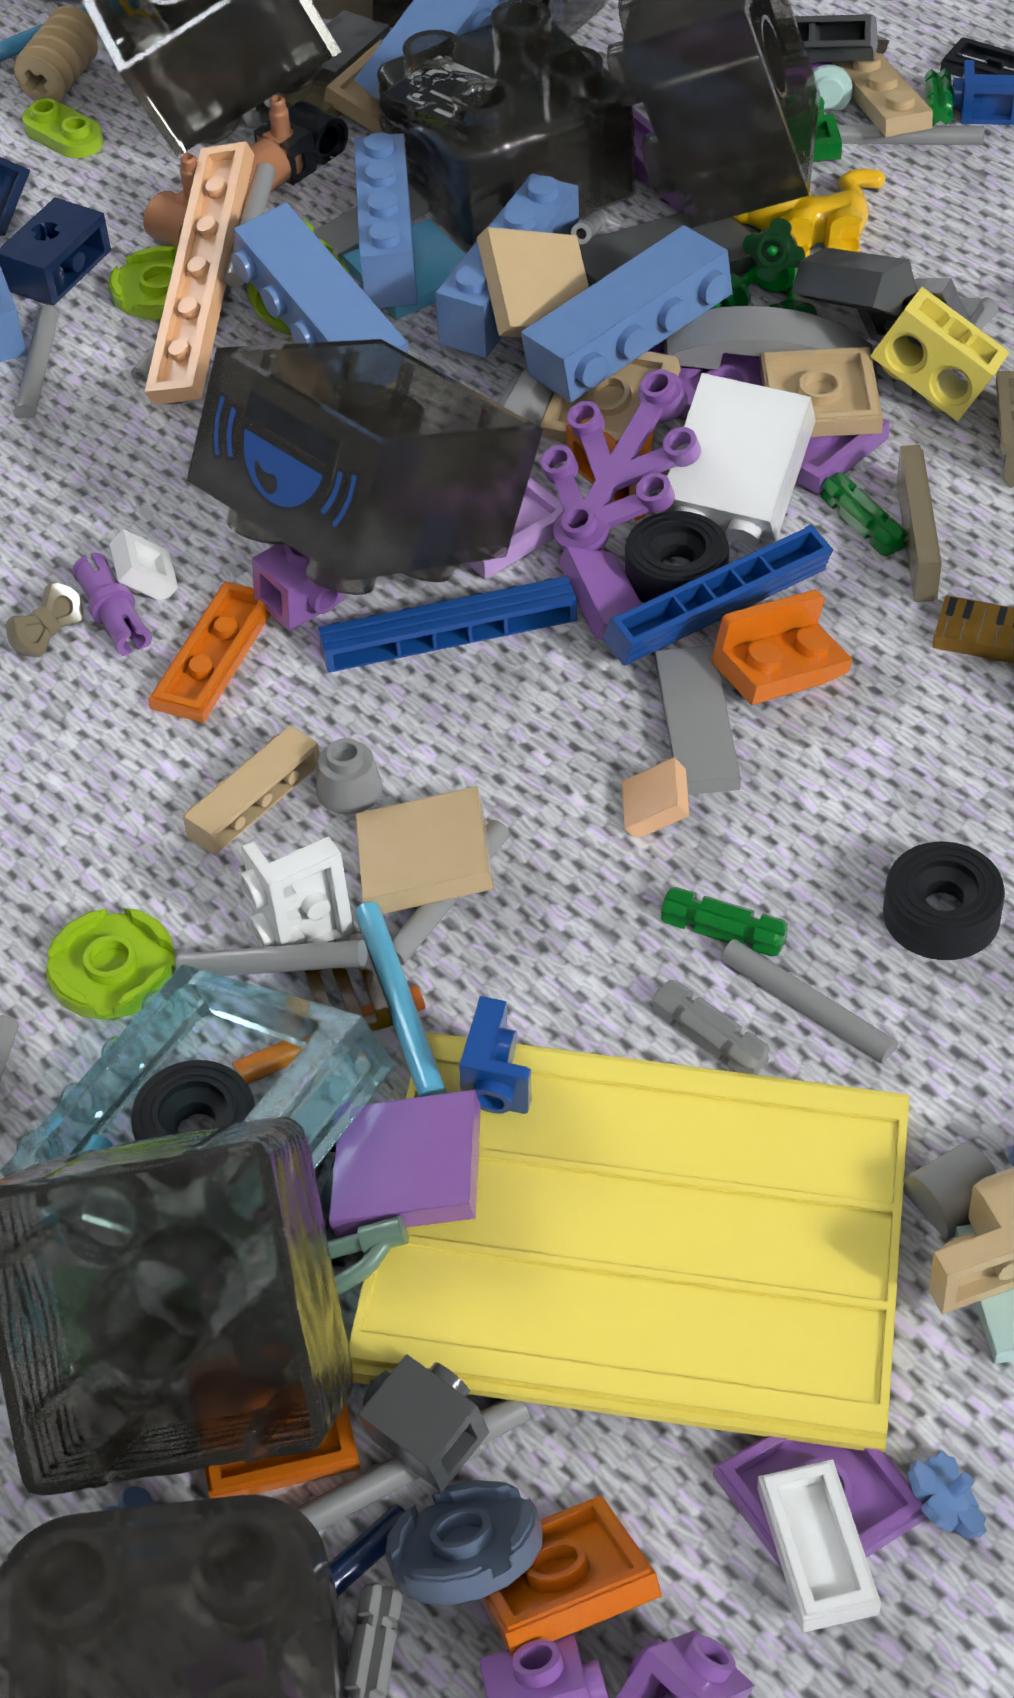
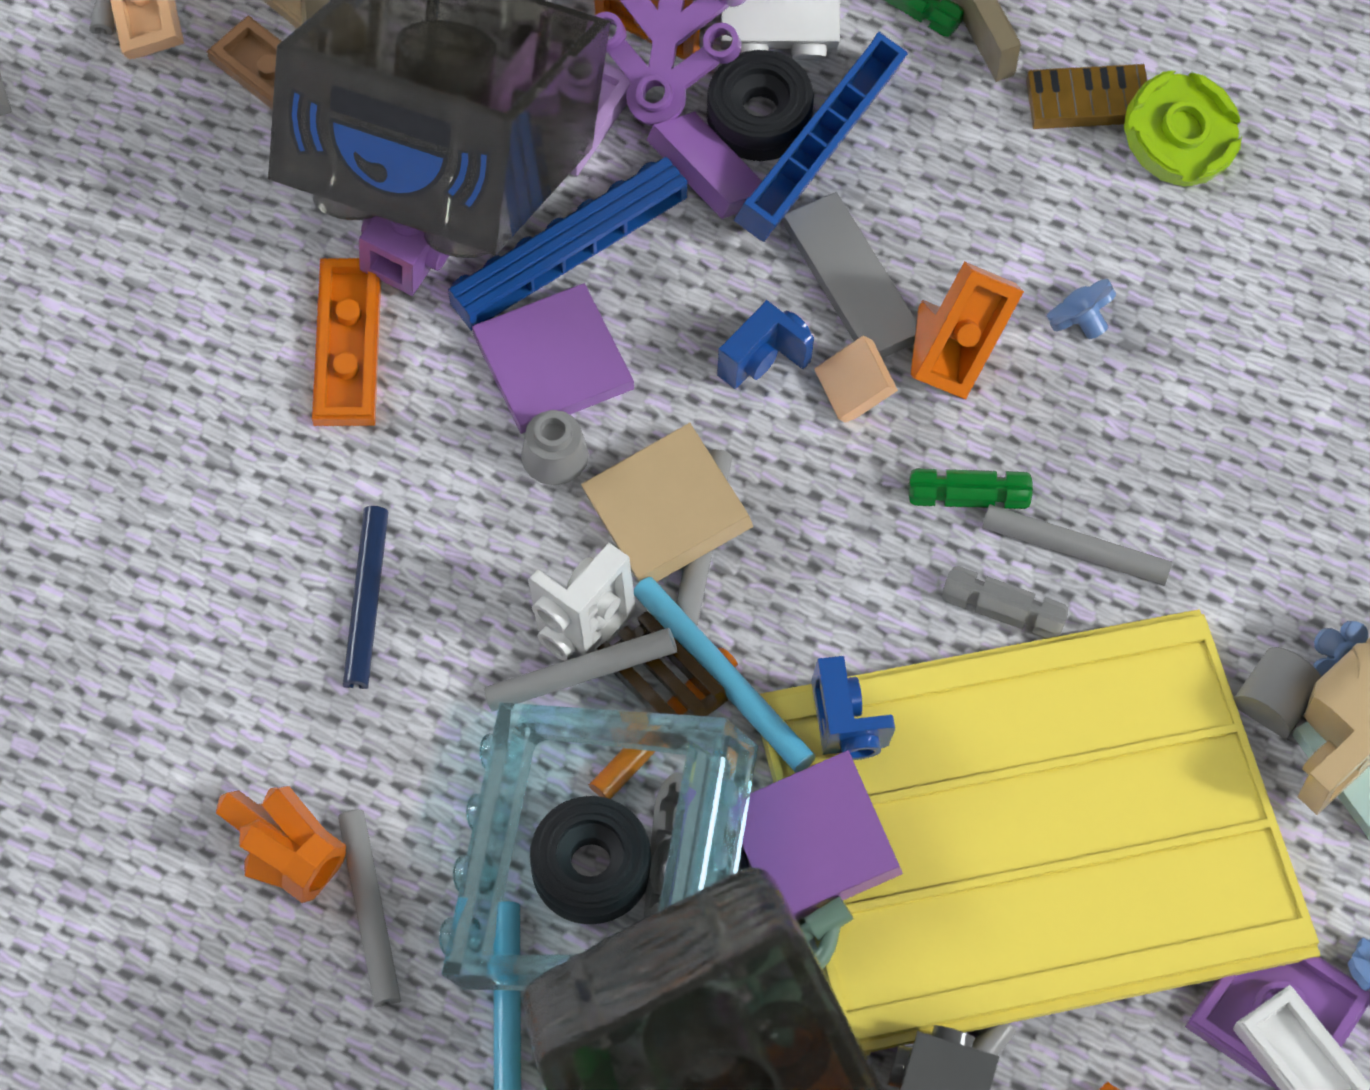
camera: 25 degrees left, 15 degrees up
(31, 633) = (167, 342): dark tan piece -> none
(111, 603) = (218, 320): medium lavender pin -> none
(117, 977) = (425, 740): lime tile -> none
(118, 851) = (365, 597): none -> dark blue piece
(143, 566) = (231, 267): white plate -> none
(251, 790) = (466, 490): tan piece -> none
(390, 707) = (553, 356): none -> medium lavender tile
(575, 740) = (757, 343): none -> blue bracket
(774, 778) = (961, 333): none -> orange slope
(778, 648) = (902, 182): orange bracket -> none
(908, 804) = (1083, 309): none -> medium blue plant
(949, 870) = (1163, 374): black tyre -> none

